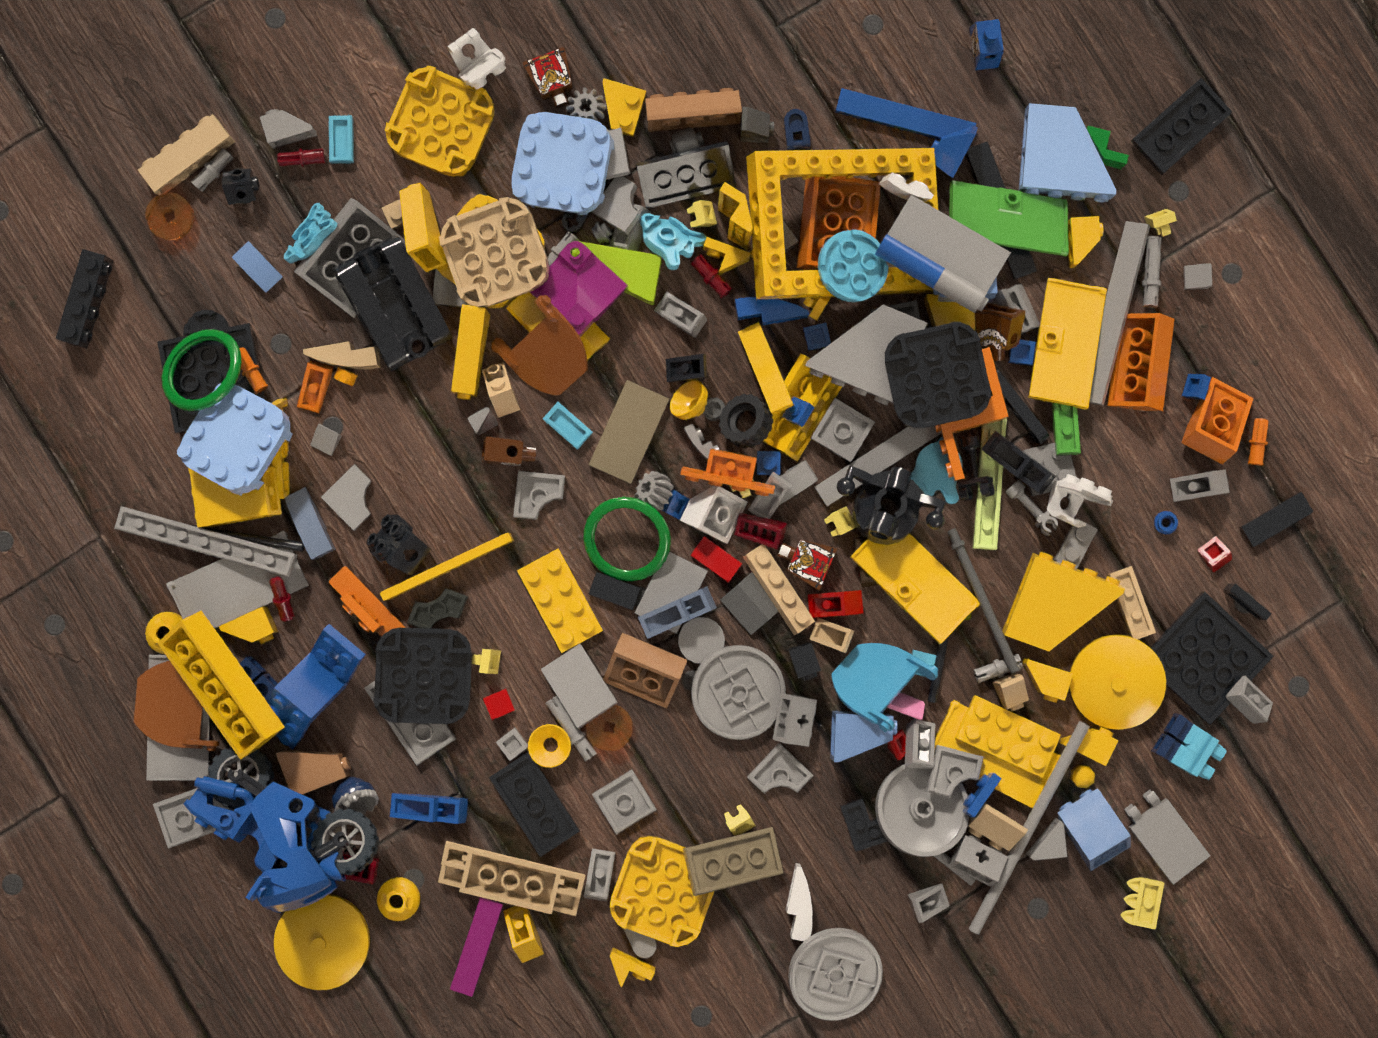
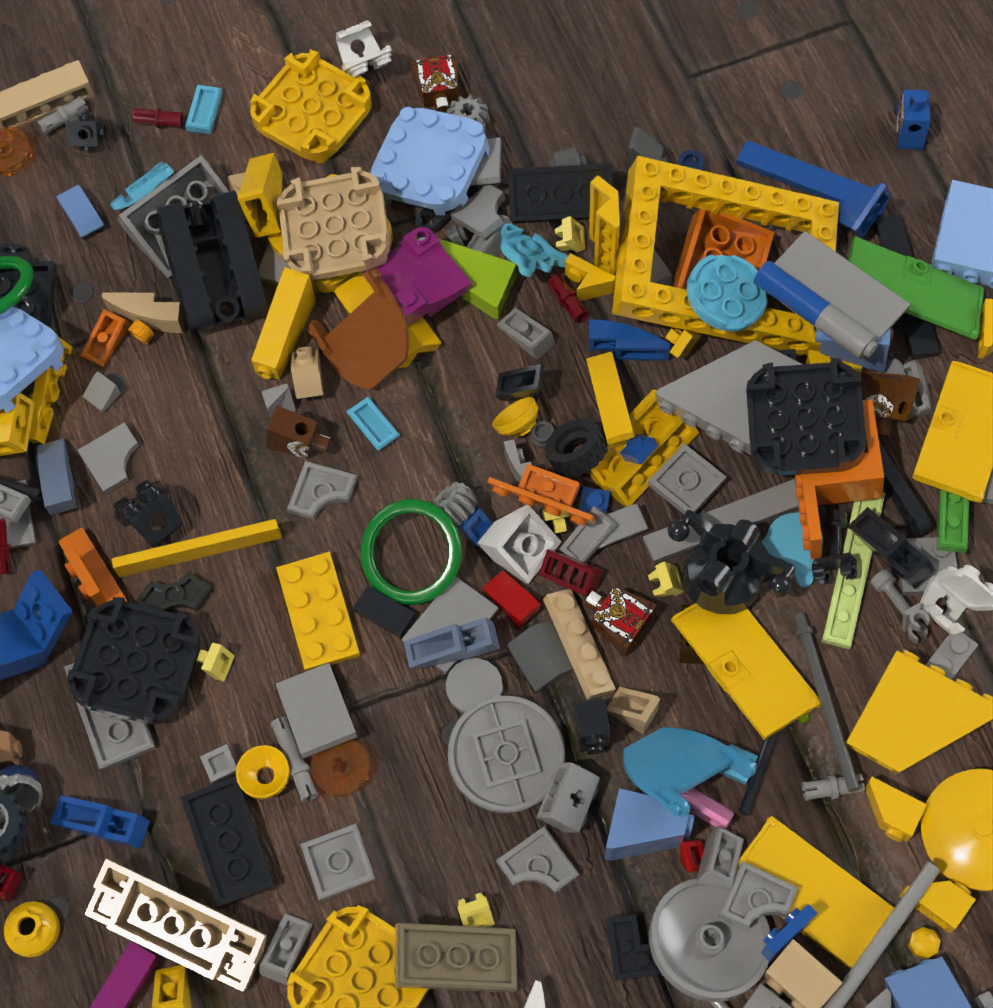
camera: 20 degrees right, 20 degrees down
(251, 372) = (40, 303): orange axle -> none
(285, 128) = (149, 88): light grey slope -> none
(498, 704) = (215, 715): red slope -> none
(623, 105) = (509, 122): yellow wing -> none
(629, 432) = (440, 443): dark tan tile -> none
(644, 670) = (398, 707): medium nougat slope -> none
(693, 110) = (590, 135): medium nougat slope -> none
(817, 336) = (672, 372): blue plate -> none
(835, 604) = (645, 671): red slope -> none
(897, 185) = (793, 226): white slope -> none
(1008, 736) = (834, 872): yellow plate -> none
(1011, 691) = (846, 813): tan slope -> none
(1023, 353) = (911, 433): blue plate -> none

